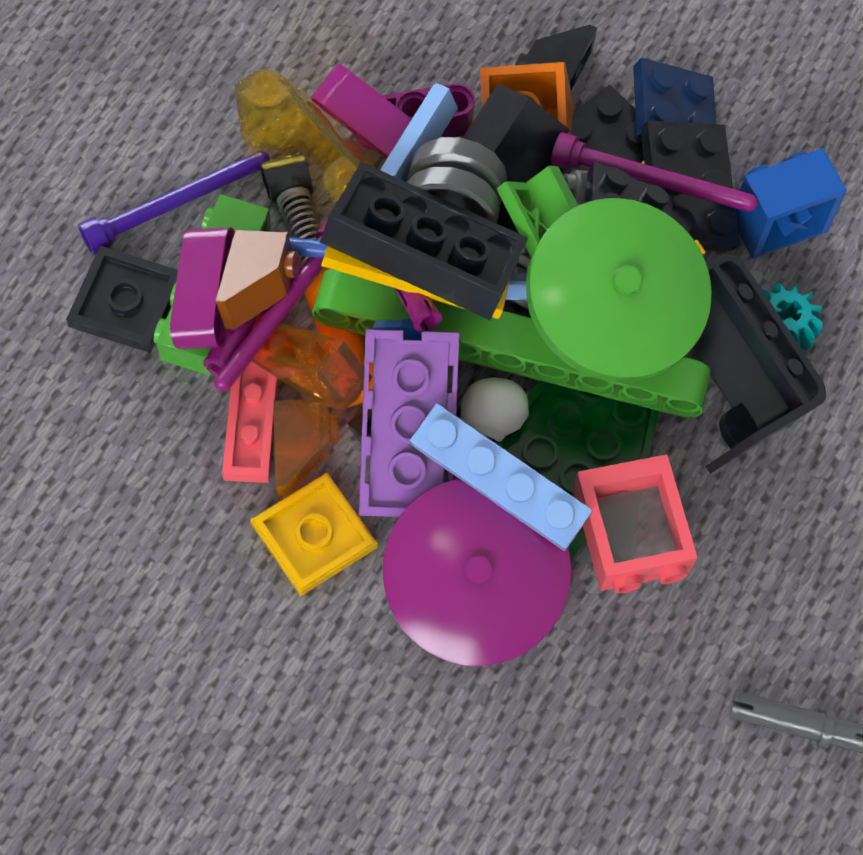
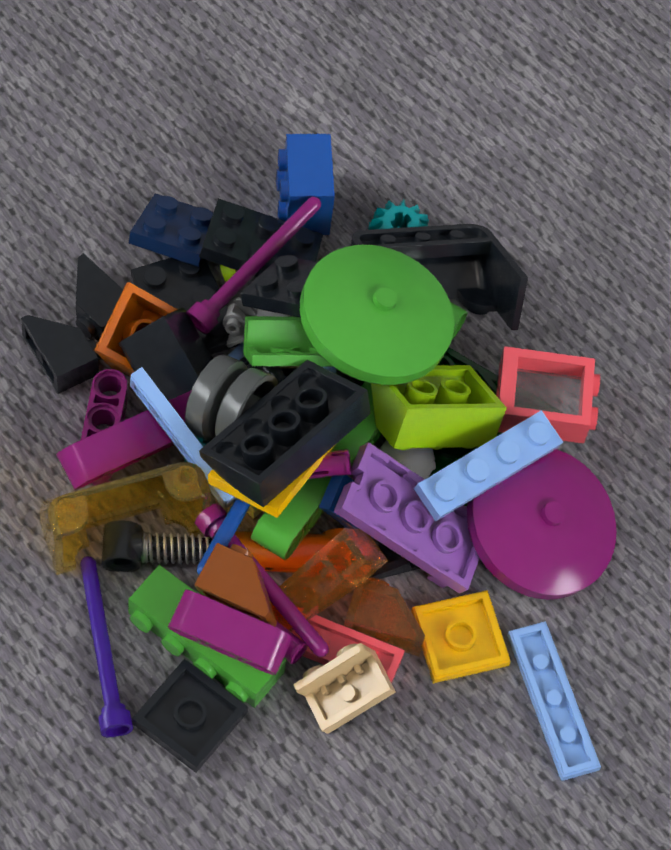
camera: 75 degrees left, 5 degrees down
(200, 427) = (345, 686): none -> tan bracket
(271, 653) = (553, 701): none -> light blue tile
(477, 47) = (61, 351): none -> black slope
(551, 408) = (438, 410): none -> lime slope

